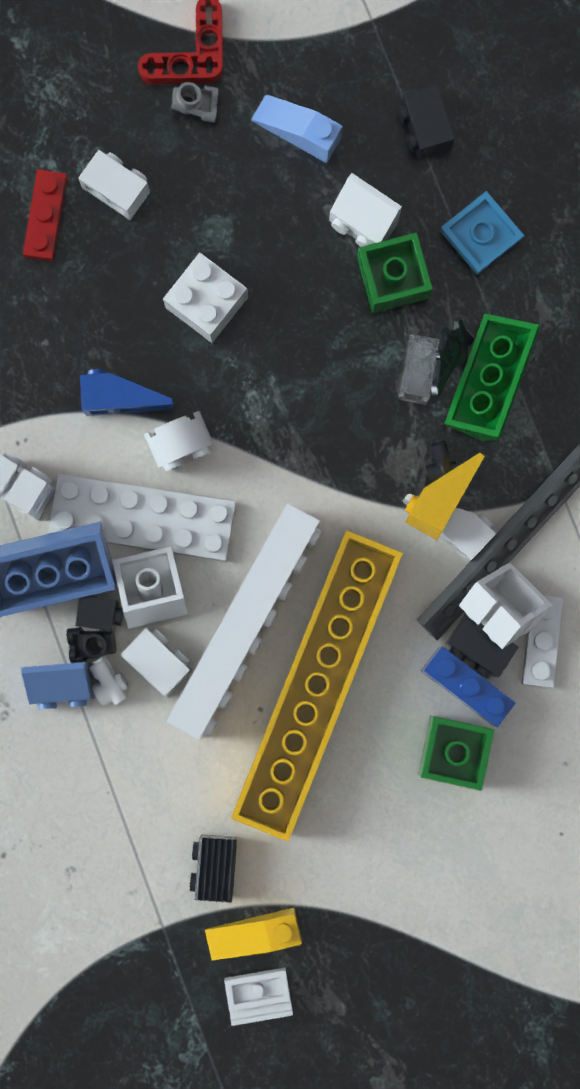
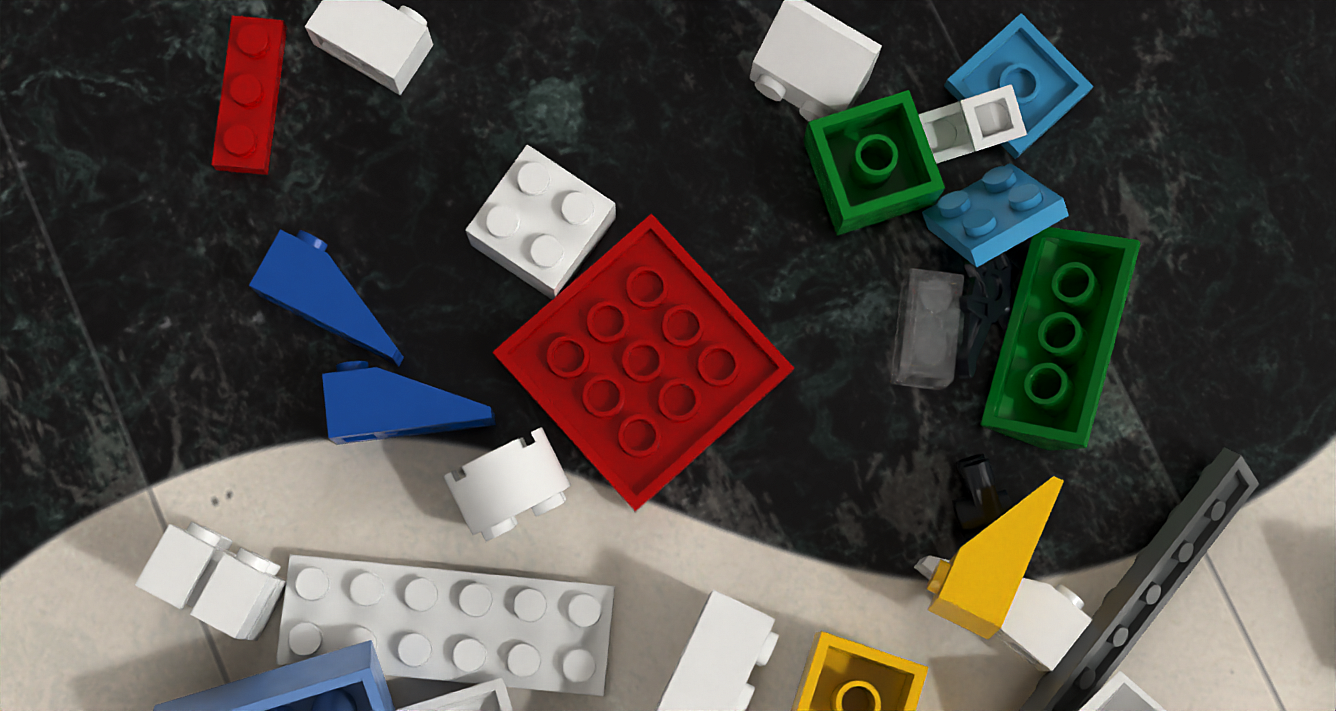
camera: 10 degrees left, 5 degrees down
(74, 325) = (310, 285): none -> blue slope
(258, 378) = (643, 362): none -> red plate
(451, 254) = (973, 124): none -> white slope
(460, 305) = (994, 214): none -> dark azure plate

